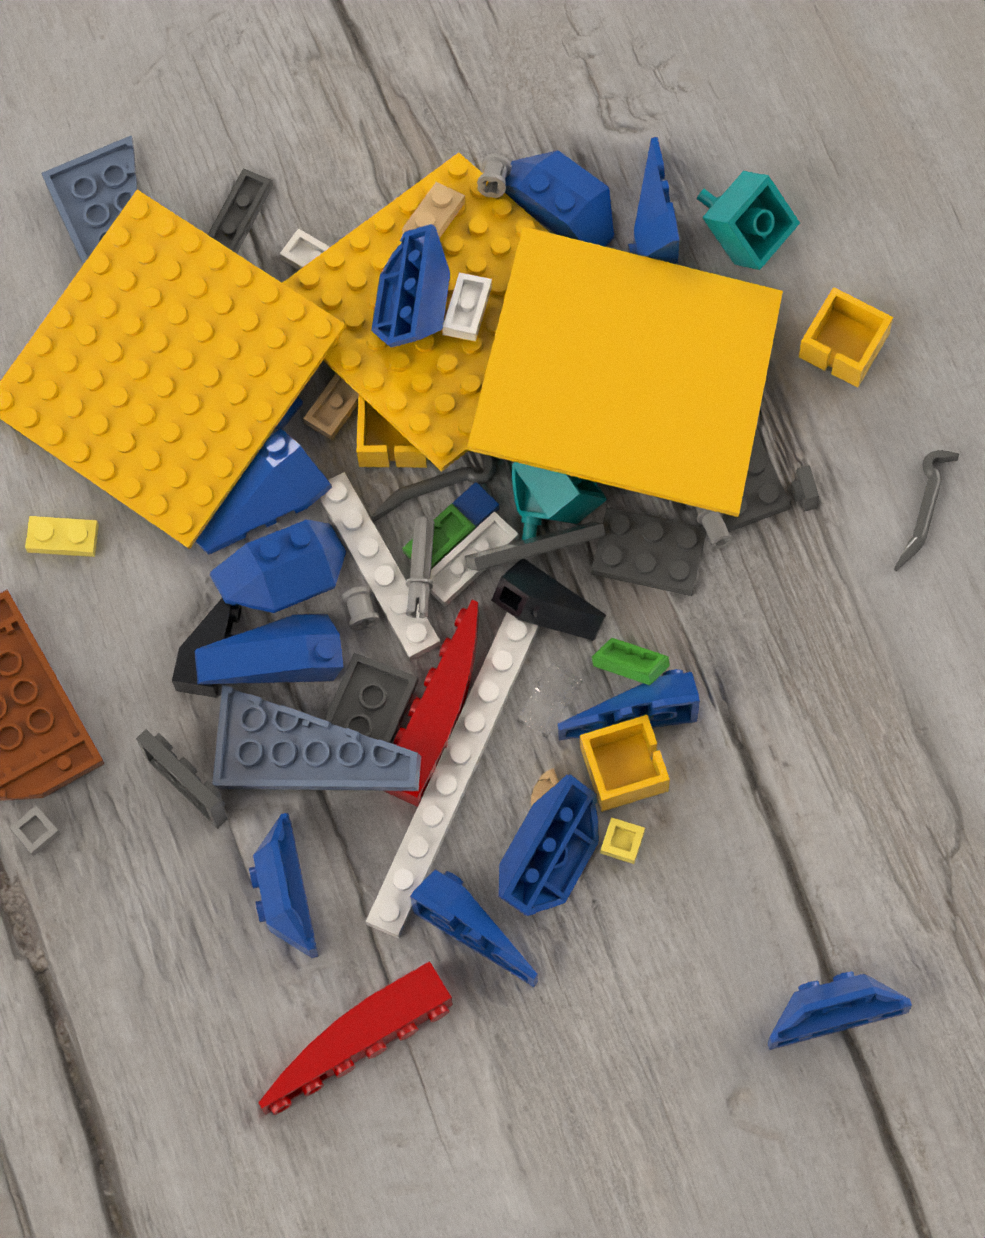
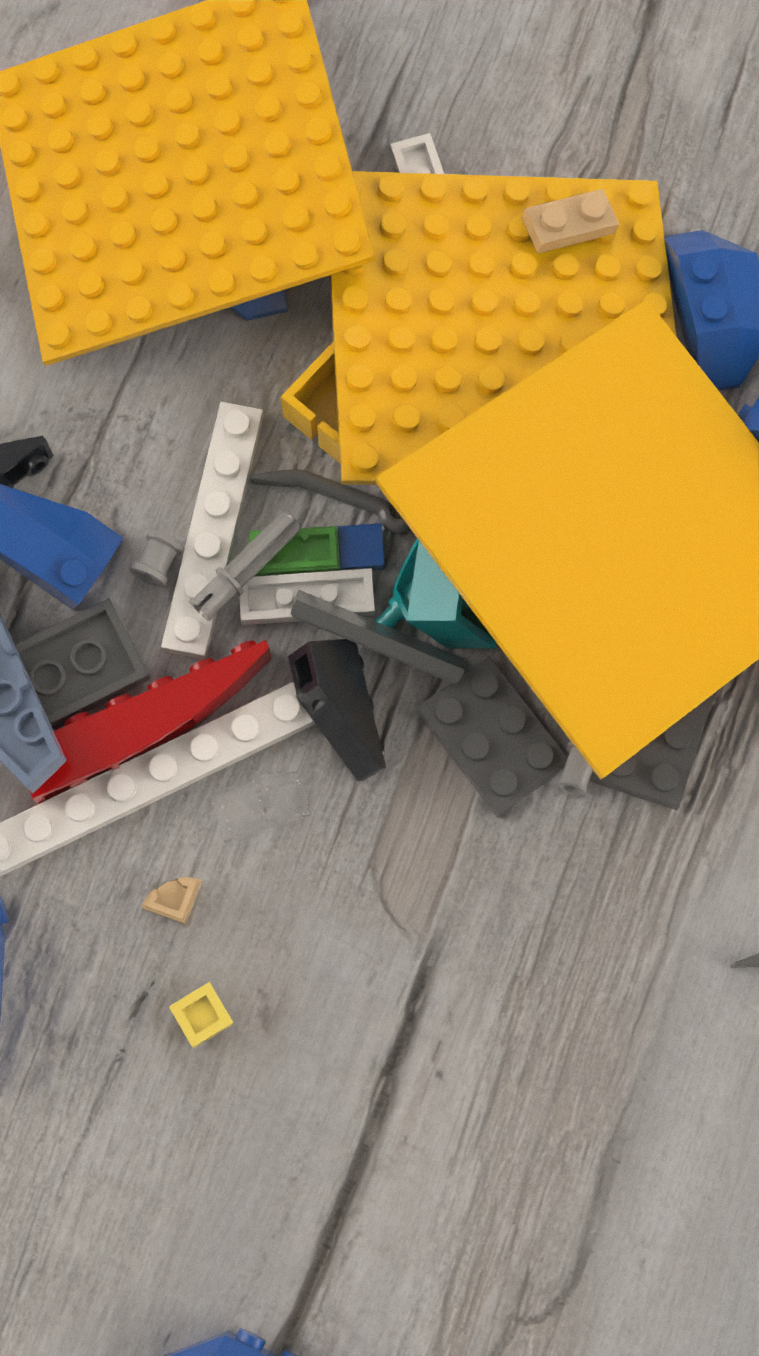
camera: 35 degrees right, 5 degrees up
(240, 209) = (387, 77): dark grey tile -> none
(272, 485) = (175, 366): blue wedge -> none
(282, 567) = (113, 457): blue wedge -> none
(332, 408) = (302, 337): tan plate -> none
(412, 289) = (475, 276): blue wedge -> none
(467, 306) = (516, 336): white plate -> none
(491, 173) = (666, 227): light grey bush -> none
(550, 848) = (114, 964): blue wedge -> none
(622, 763) = (267, 937): yellow piece -> none
(630, 661) = (369, 836): bright green plate -> none
(667, 702) = (354, 897): blue wedge -> none
(805, 489) = (707, 803): dark grey plate -> none

